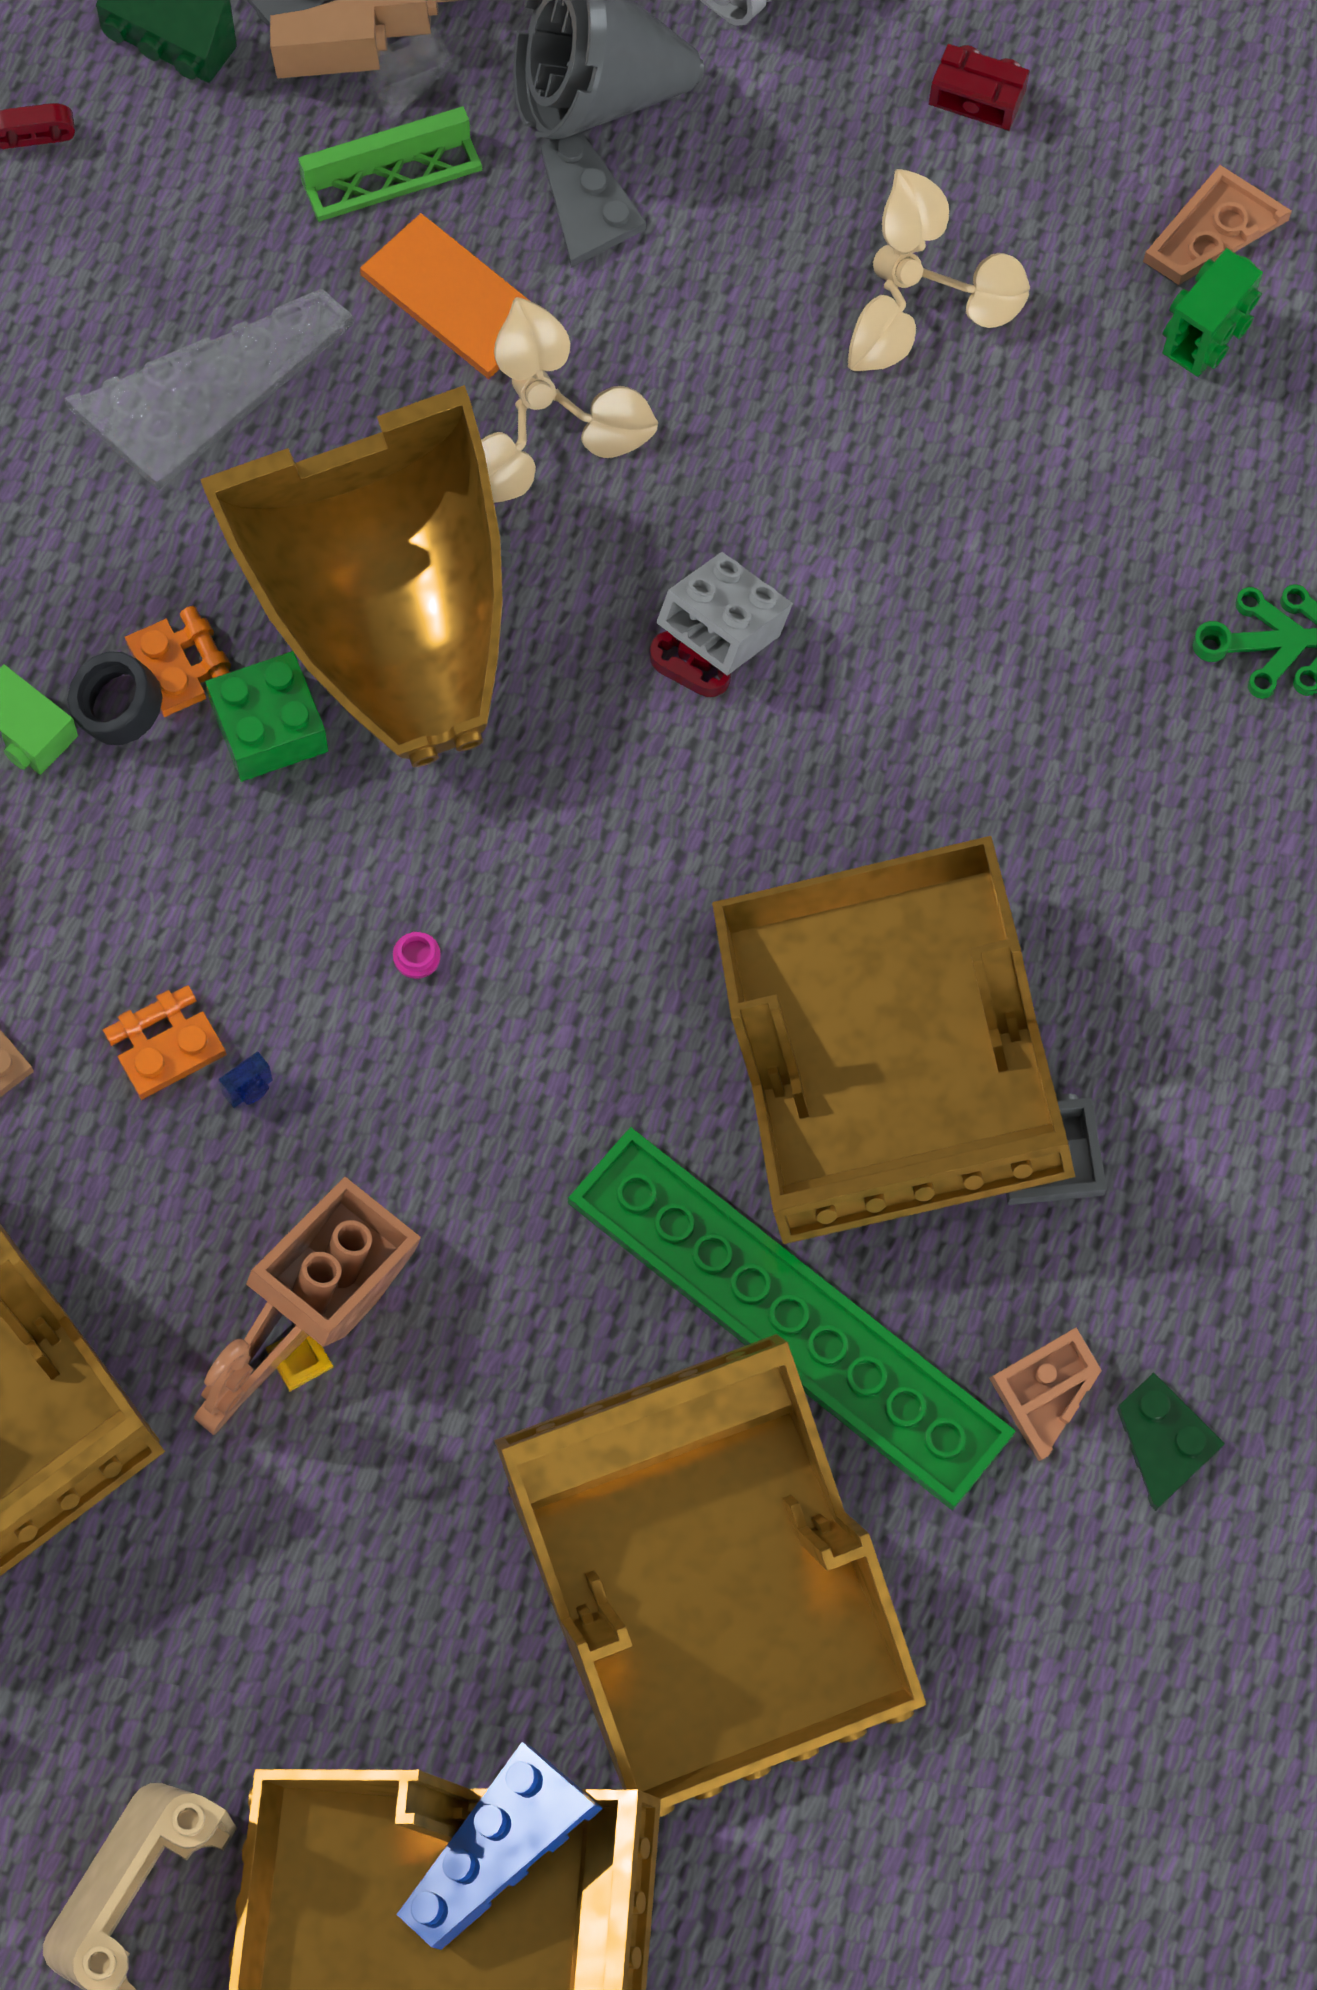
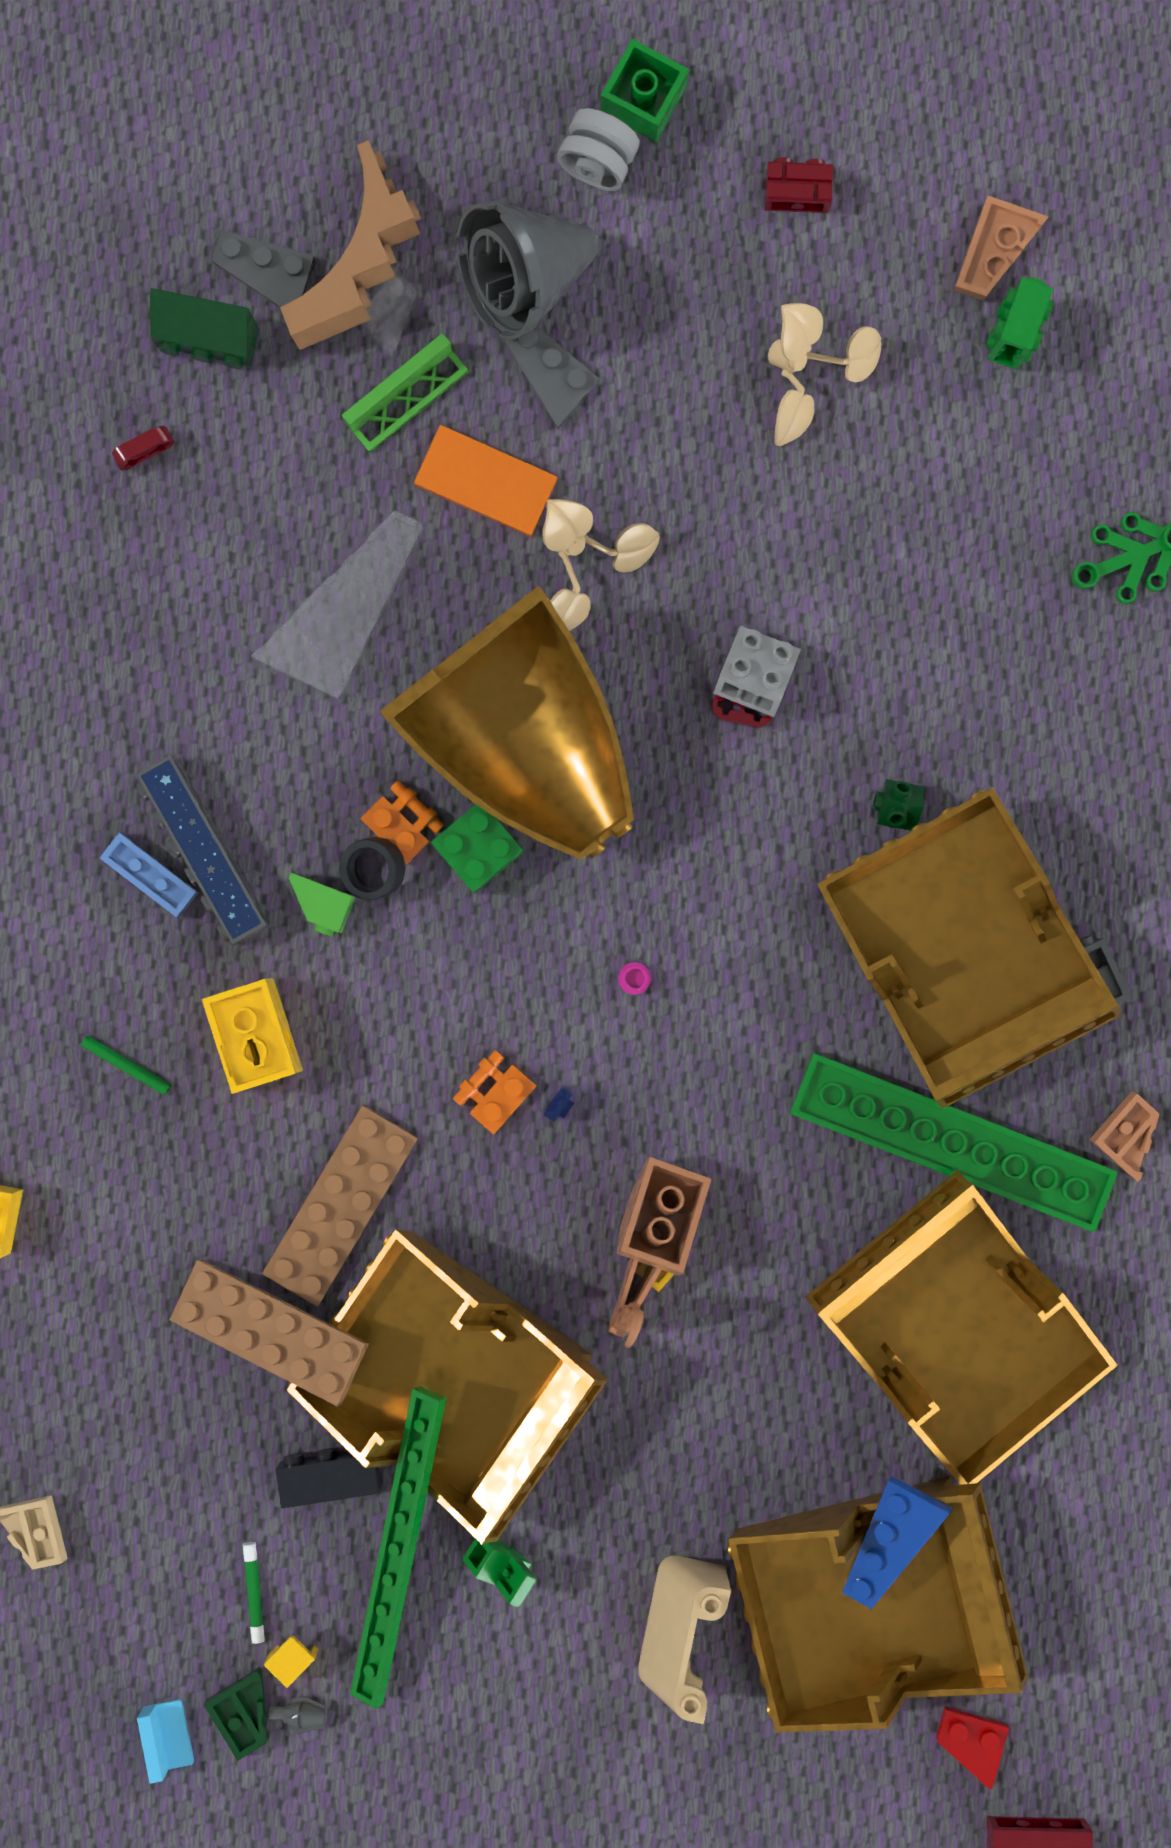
camera: 15 degrees left, 20 degrees up
(860, 837) = (899, 804): none -> dark green brick

